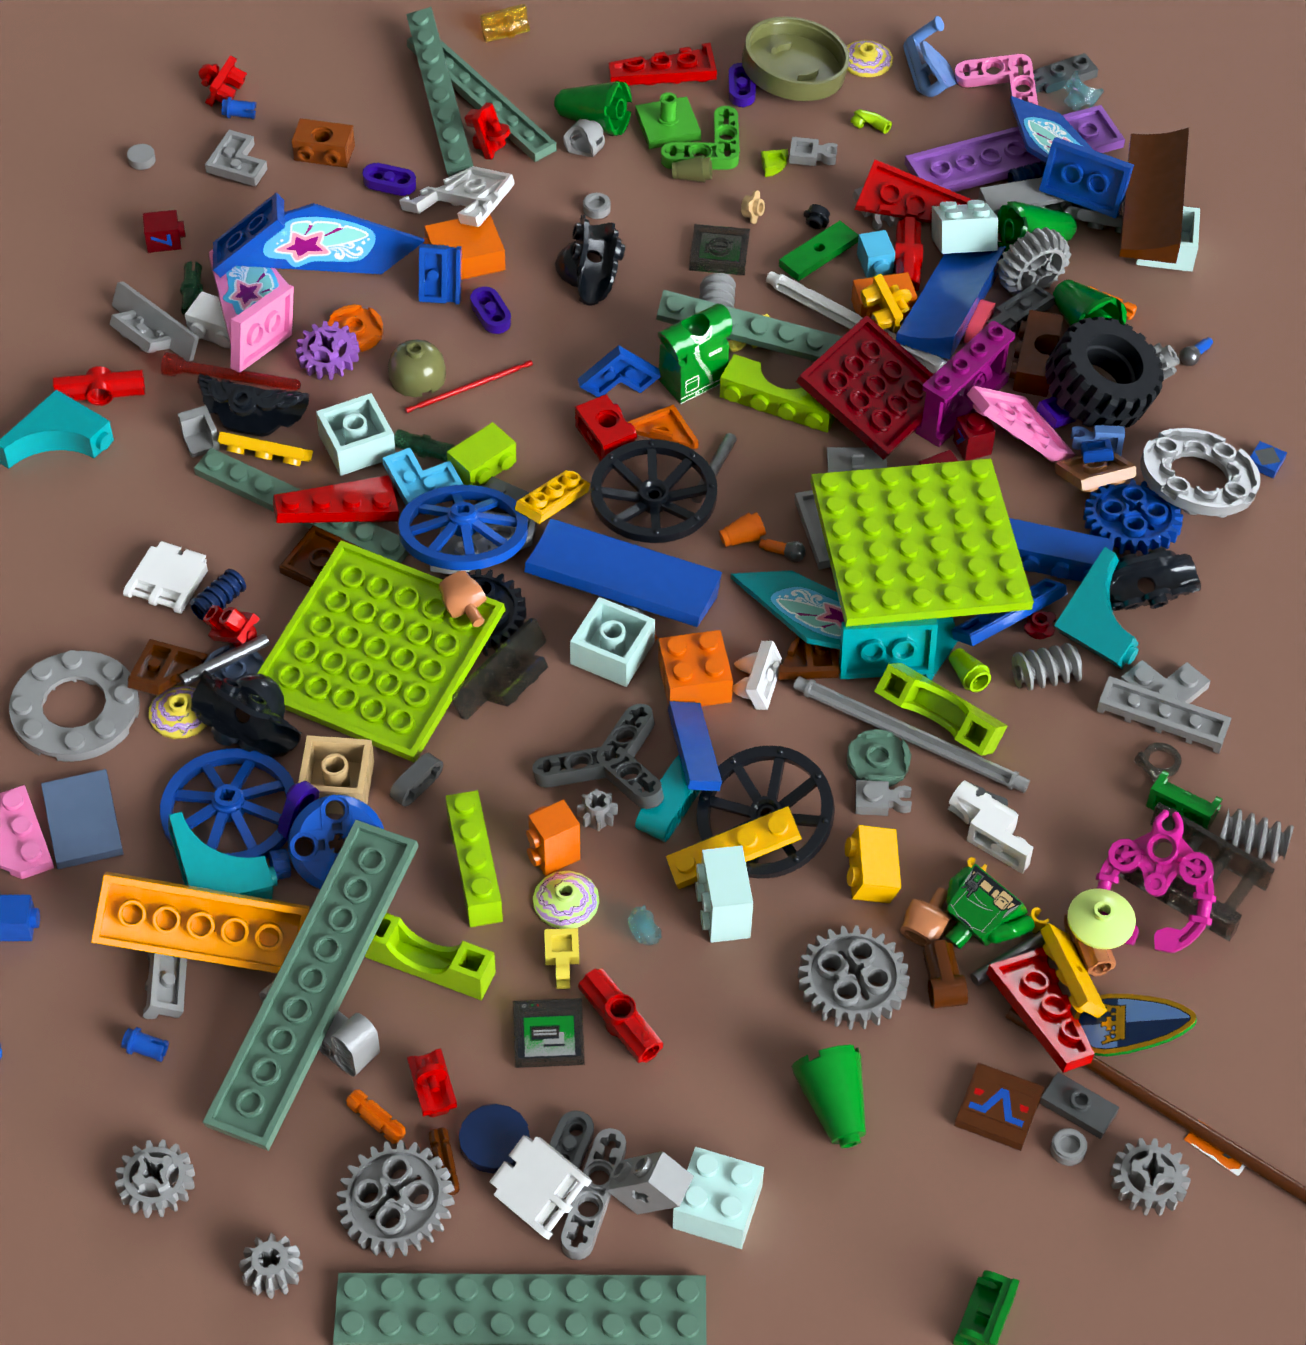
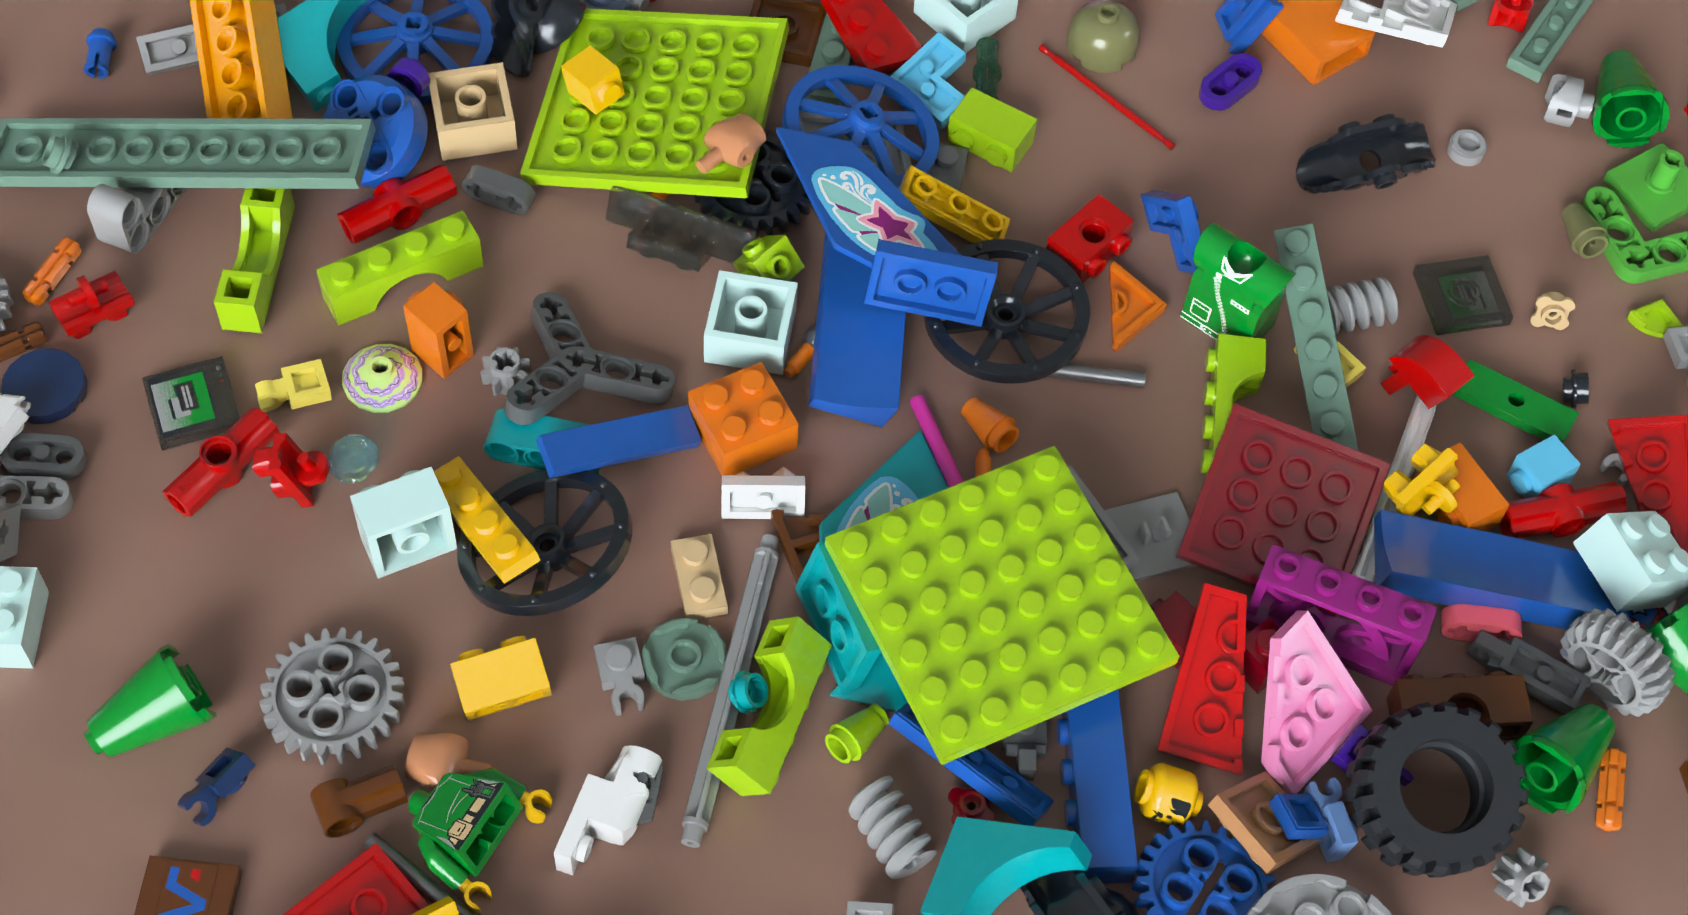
camera: 70 degrees right, 5 degrees up
(282, 1072) = (58, 154): none -> sand green plate
(351, 678) = (593, 80): none -> yellow brick
(415, 881) = (397, 204): none -> red piece
(559, 618) = (769, 258): none -> lime brick
(576, 528) = (882, 229): none -> blue piece
(653, 959) = (291, 469): none -> red hips
(753, 566) = (936, 441): none -> dark pink bar
(790, 275) = (1429, 369): none -> red brick
(814, 733) = (699, 577): none -> tan plate
(902, 1062) = (219, 779): none -> dark blue plate
(926, 719) = (748, 691): none -> teal plate
(1016, 477) = (1207, 697): none -> red wing
(1061, 512) = (1168, 794): none -> yellow head

